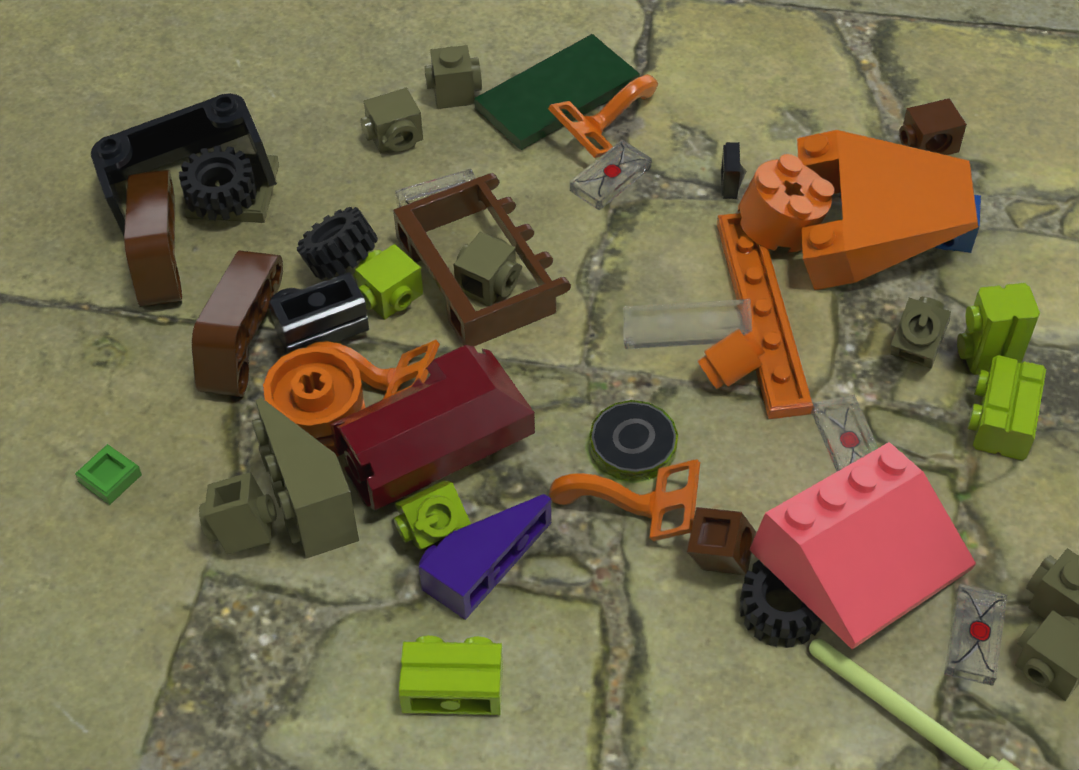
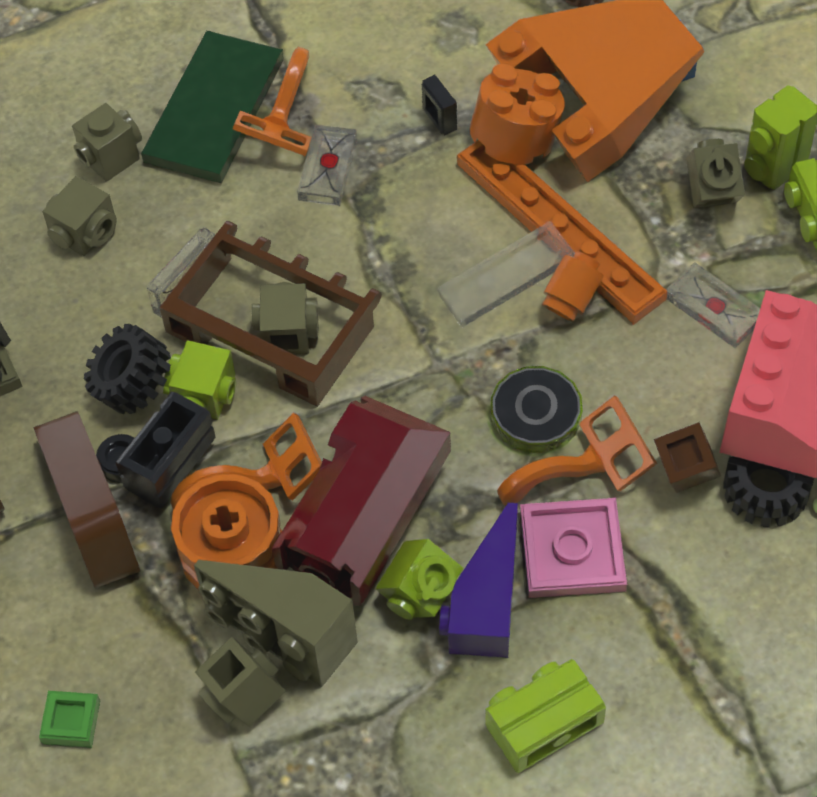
camera: 30 degrees left, 5 degrees up
(580, 564) = (572, 548): none -> bright pink tile

